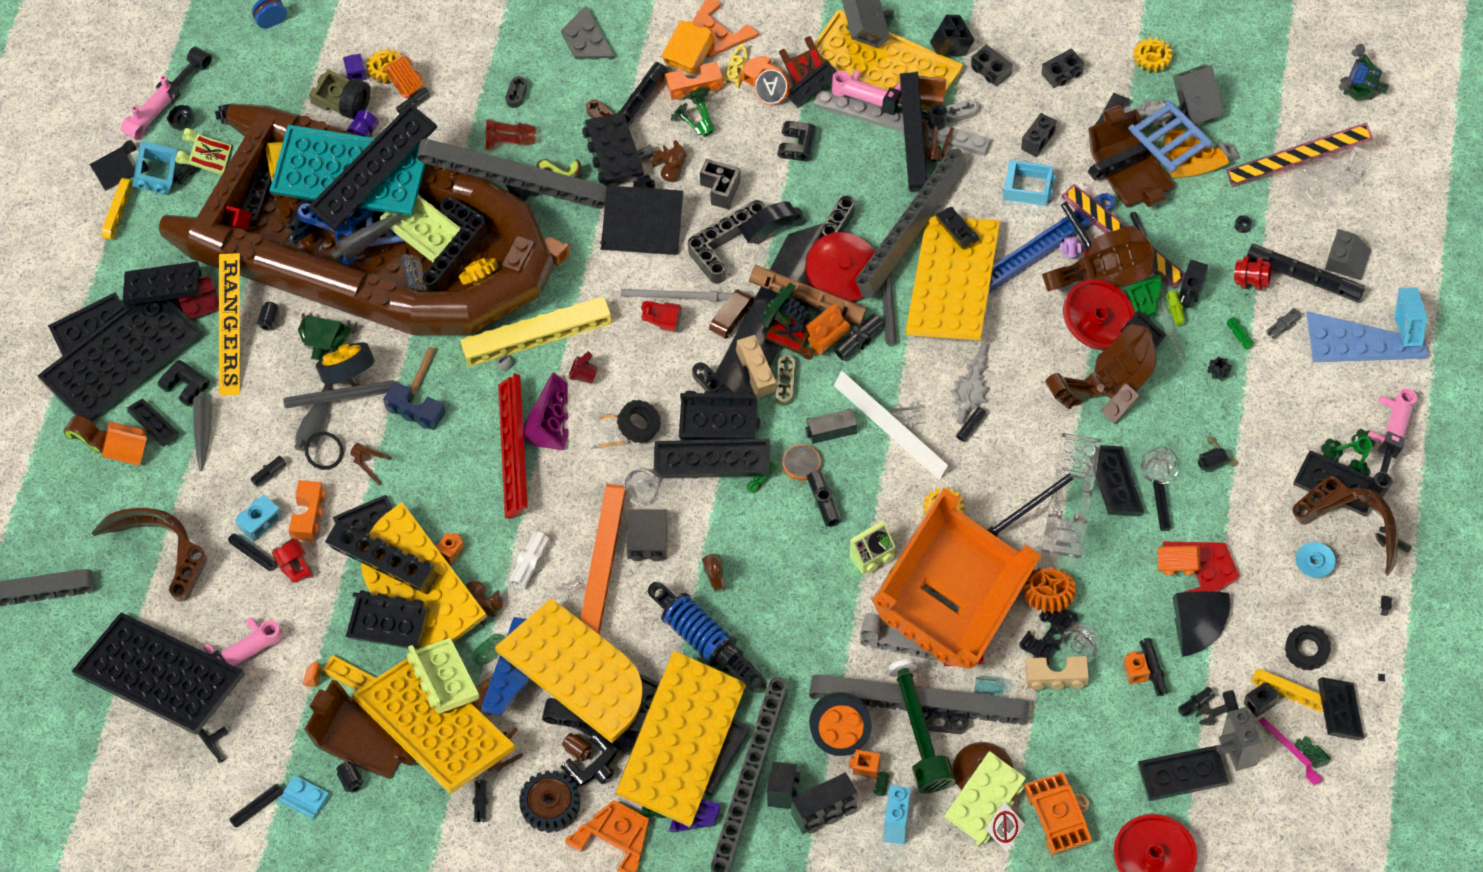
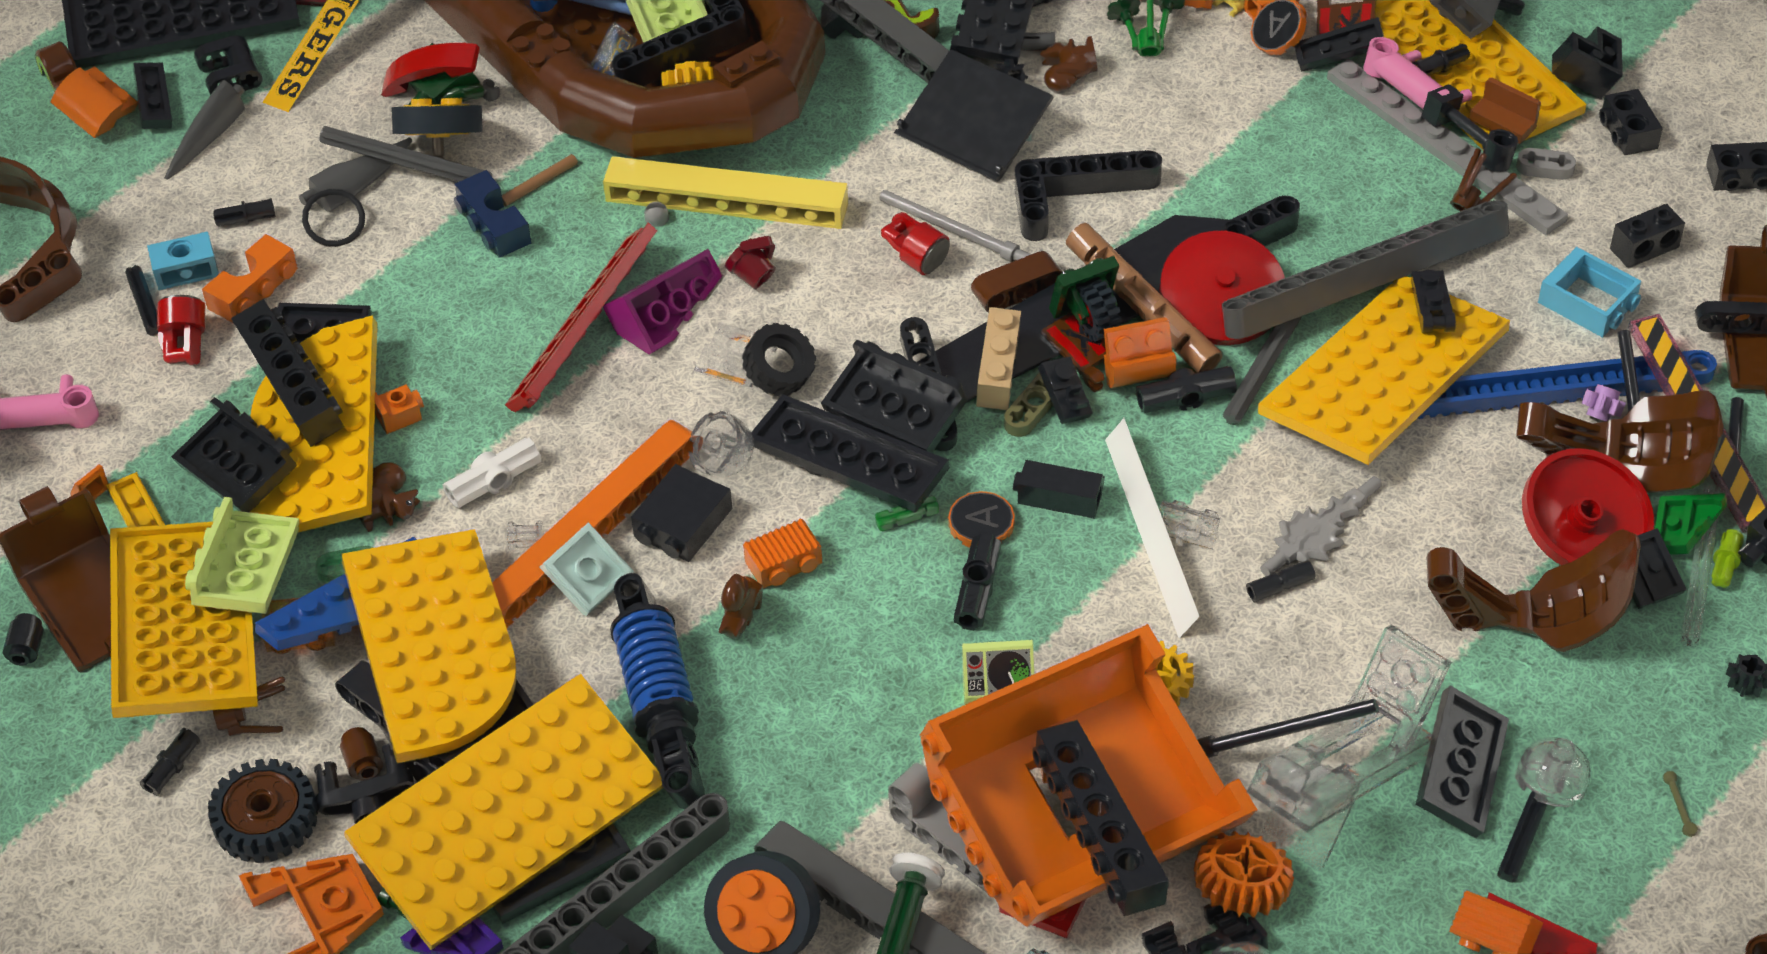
camera: 30 degrees right, 10 degrees down
(268, 316) = (395, 34): black brick -> none
(312, 330) = (429, 60): none -> red slope
(362, 453) = (381, 243): reddish brown plant -> none
(557, 250) = (827, 107): orange brick -> none
(621, 590) = (585, 569): none -> light aqua plate
(715, 532) = (783, 554): none -> orange brick
(722, 180) = (1119, 112): black brick -> none
(769, 219) = (1159, 180): black arch -> none
(799, 367) = (1065, 390): none -> black plate
(806, 136) = (1286, 101): black connector -> none
(874, 70) = (1442, 60): none -> black axle
(913, 130) = (1450, 148): black beam -> none
(972, 588) = (1100, 818): none -> black brick
(1119, 402) = (1544, 650): plate -> none
(1212, 459) = (1653, 805): black brick -> none

